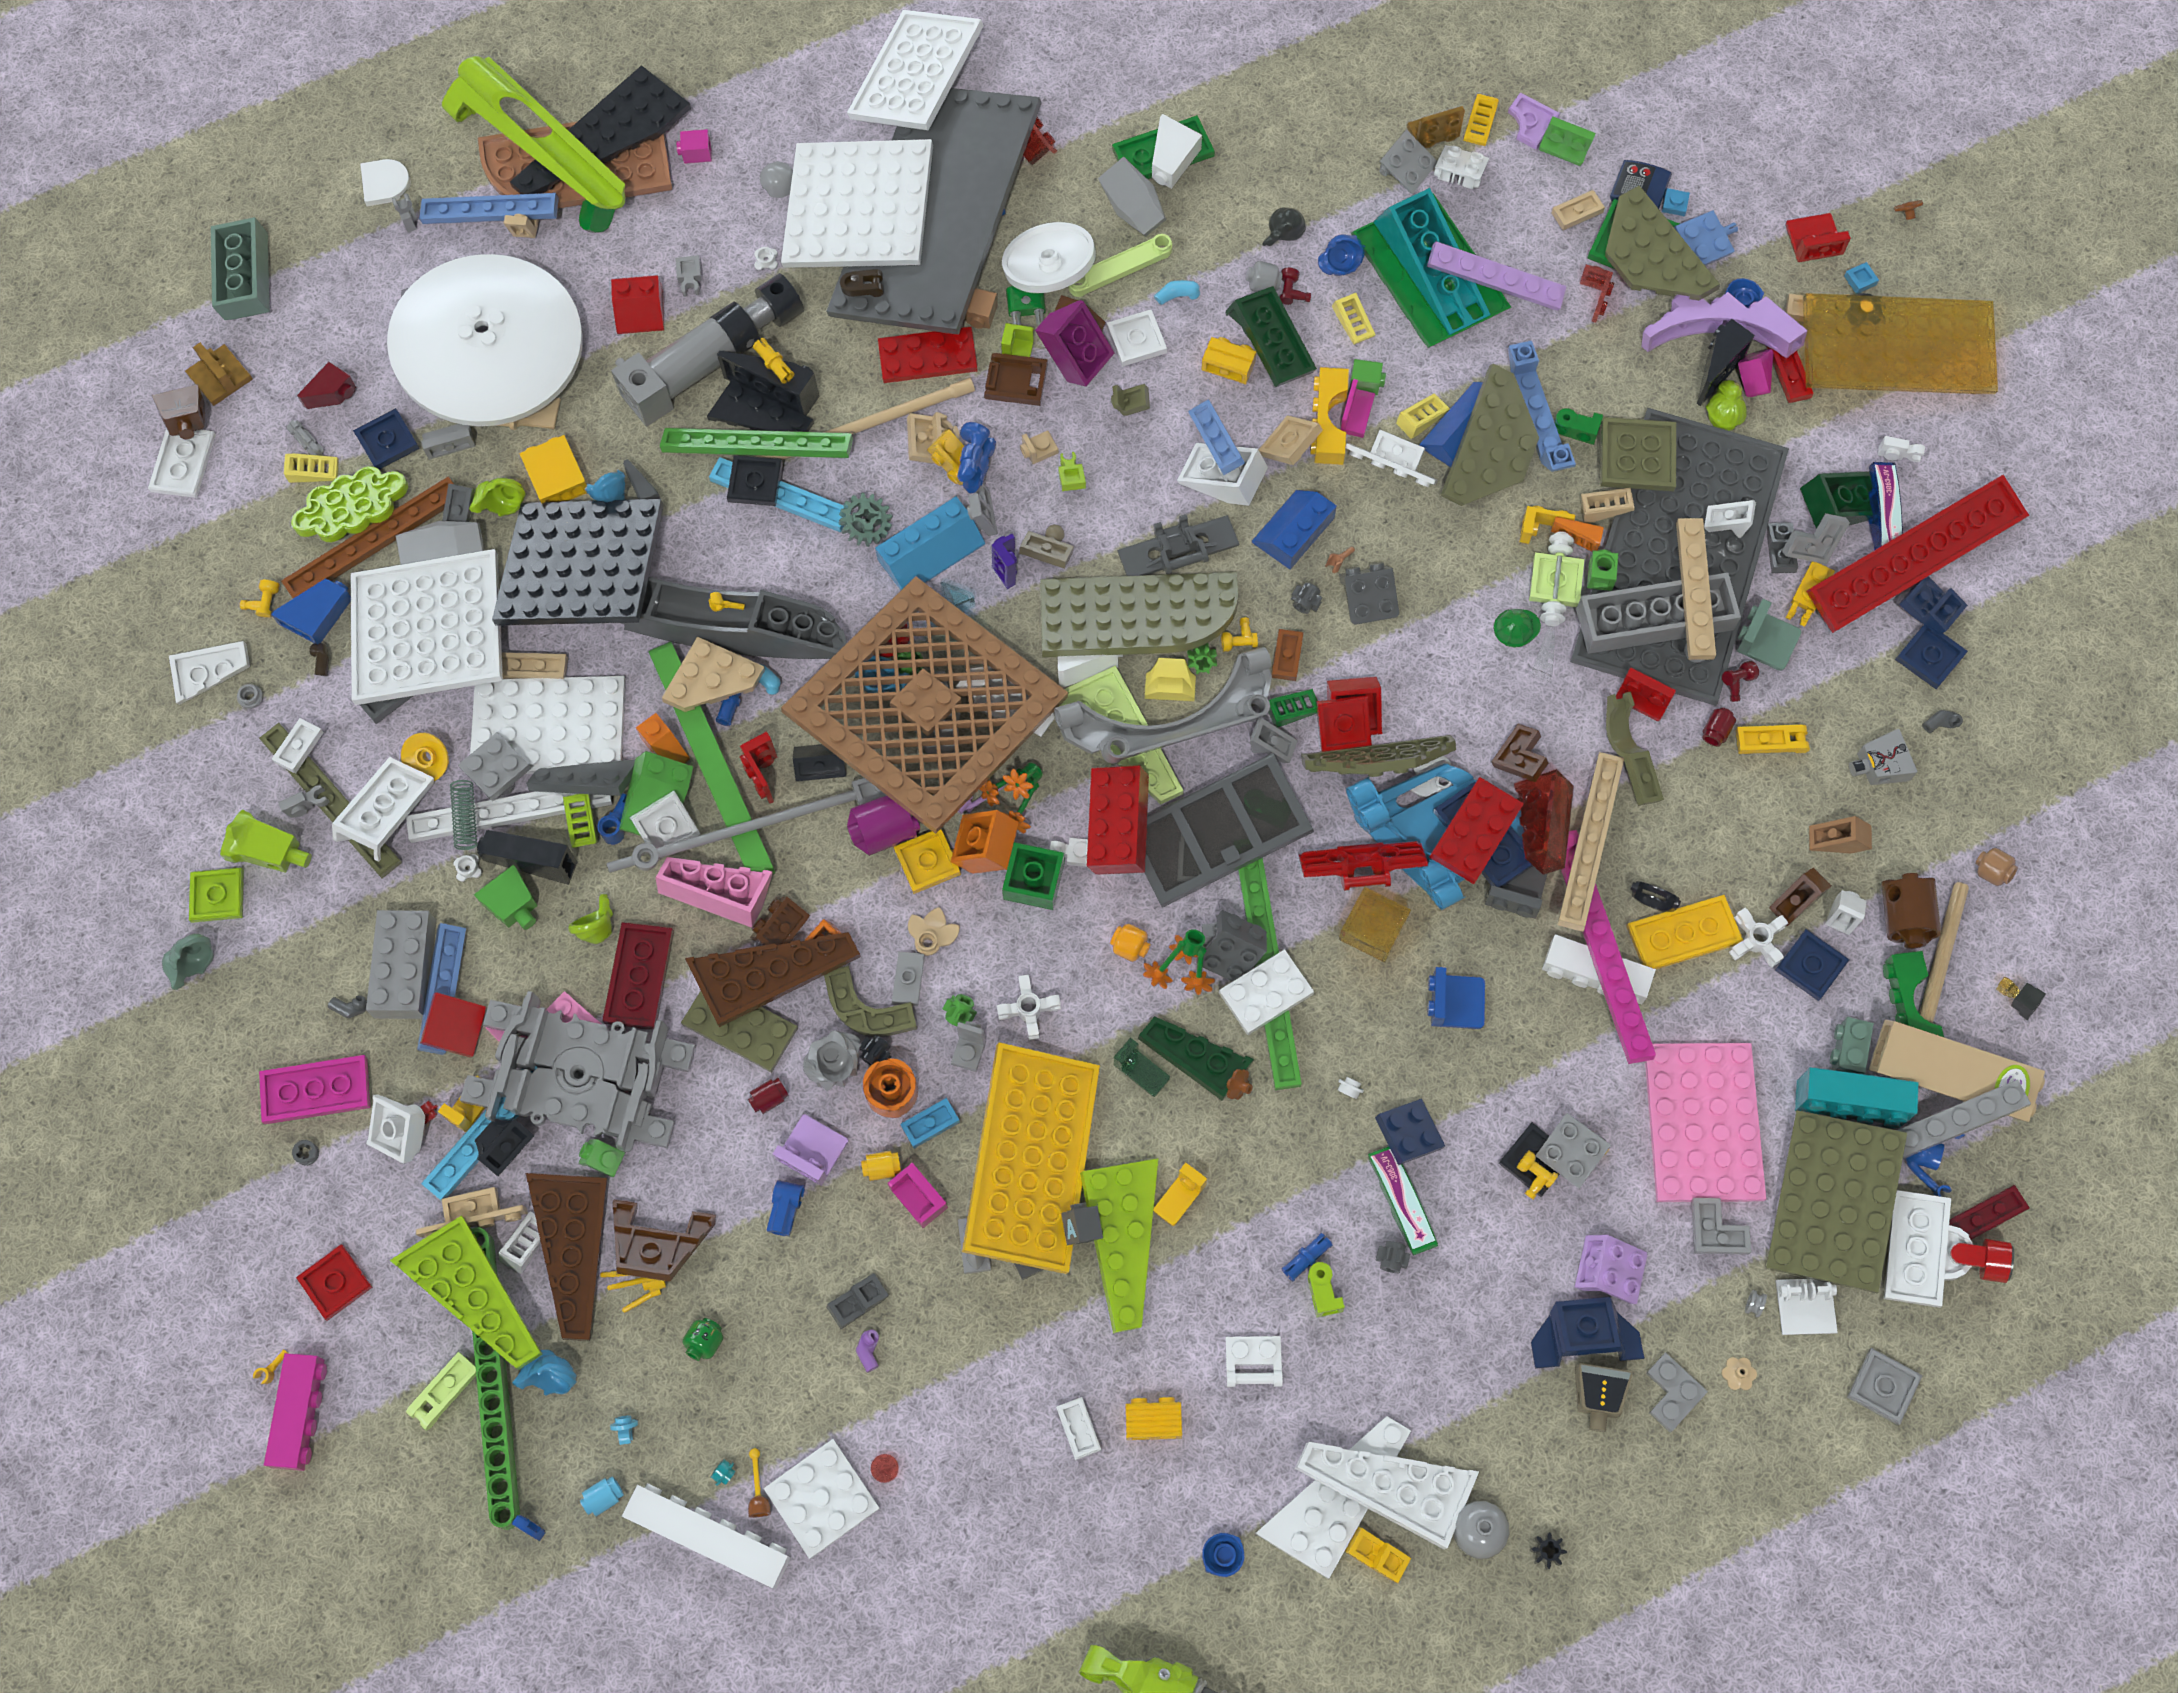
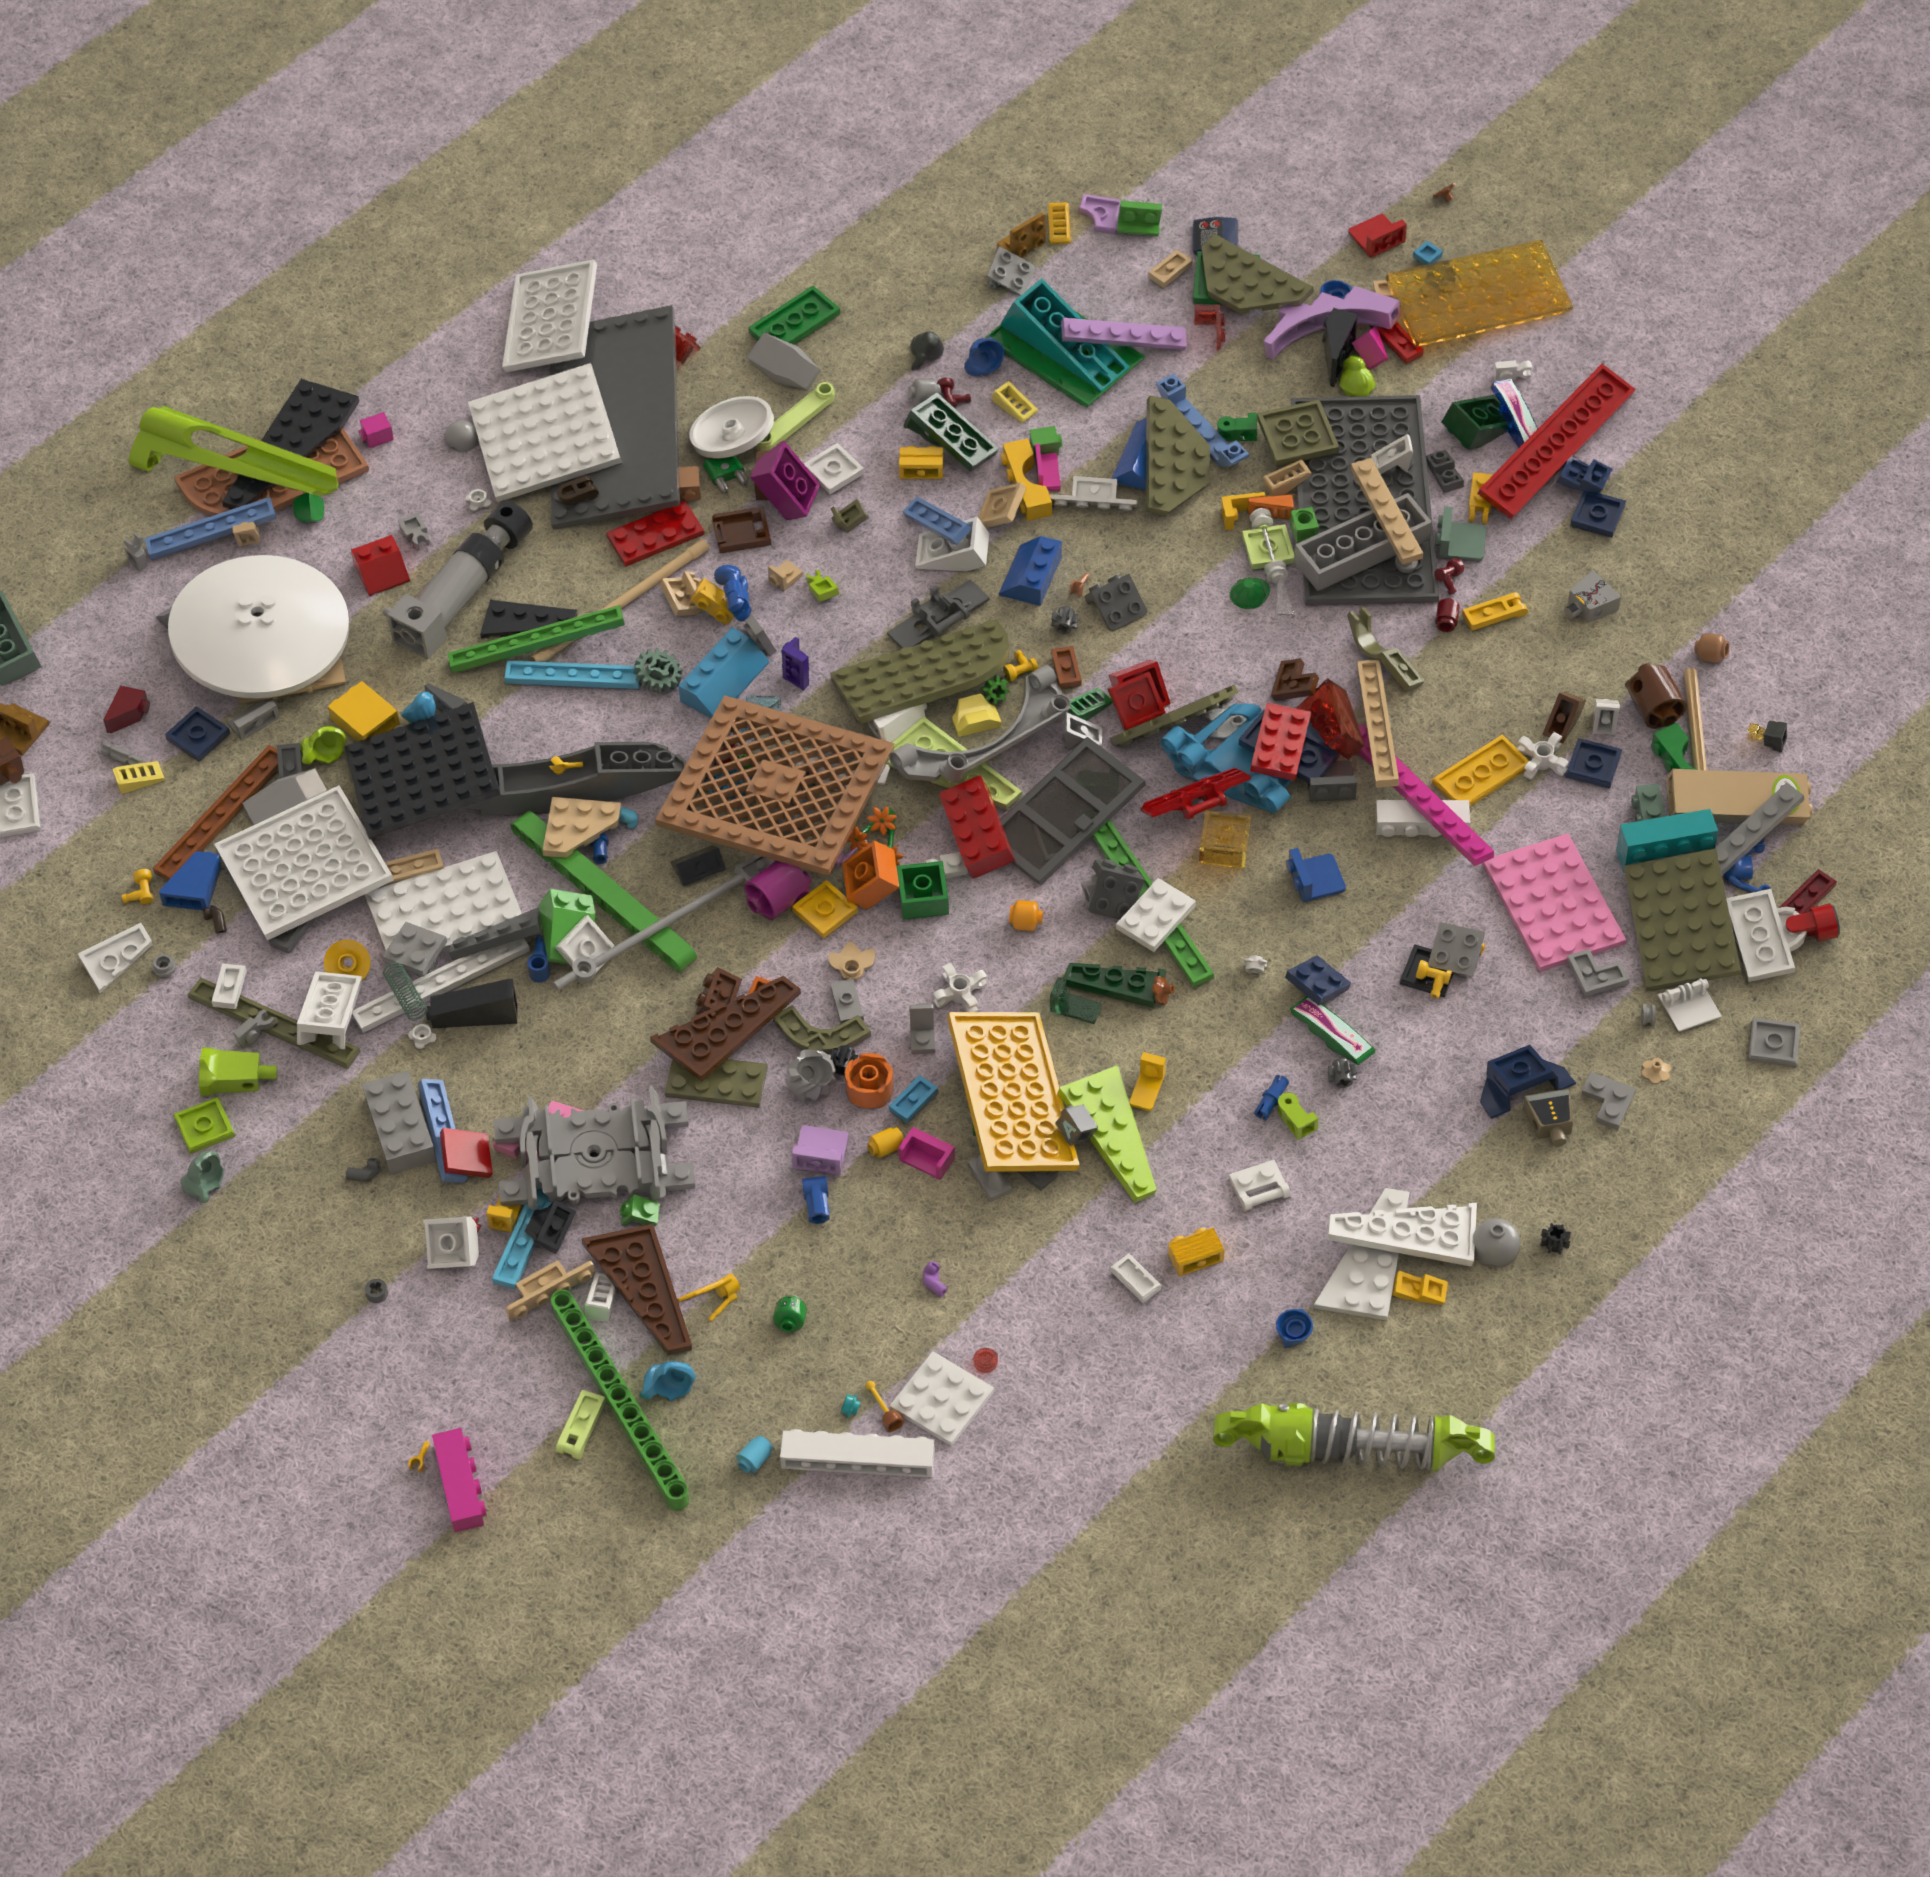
camera: 20 degrees left, 15 degrees down
(314, 1089) = (363, 1240): dark pink plate -> none
(334, 1282) = (446, 1378): red tile -> none
(349, 504) = (188, 792): lime plate -> none
(384, 181) = (100, 536): white tile -> none
(463, 1281) = (567, 1328): lime wing -> none
(509, 899) = (471, 1046): bright green torso -> none
(528, 1527) = (697, 1498): blue tile -> none
(591, 828) = (524, 978): lime slope -> none
(594, 926) = (558, 1043): lime hat -> none
(624, 1427) = (750, 1398): medium azure plate -> none
(638, 975) = (611, 1066): dark red plate -> none
(653, 1251) = (719, 1259): wing -> none
(661, 739) = (546, 879): orange slope -> none
(716, 889) = (650, 982): bright pink wedge -> none
(751, 371) = (531, 584): black slope -> none
(754, 480) = (547, 668): black tile -> none
(758, 753) = (646, 879): red bracket -> none
(768, 1096) = (765, 1121): dark red brick -> none
(773, 360) = (530, 564): yellow pin -> none
(857, 1301) = (908, 1249): dark grey slope -> none
(959, 1009) = (900, 1007): bright green gear -> none
(1017, 340) = (730, 497): lime panel -> none
(1047, 547) = (826, 646): dark tan plate -> none
(1174, 151) = (805, 315): white slope -> none
(1176, 289) = (852, 422): medium azure arm -> none
(1187, 947) = (1077, 897): plant -> none
(1412, 425) = (1100, 469): light yellow slope -> none
(1462, 163) = (1063, 259): white hinge -> none
(1611, 1267) = (1521, 1022): lavender bracket -> none
(1647, 693) = (1382, 605): red bracket -> none
(1669, 905) = (1460, 749): black helmet -> none
(1675, 202) = (1250, 240): dark azure plate -> none
(1707, 237) = (1288, 257): medium blue plate -> none
(1821, 544) = (1475, 456): light grey plate -> none
(1841, 836) = (1579, 663): medium nougat slope -> none
(1943, 719) = (1627, 556): dark grey arm -> none

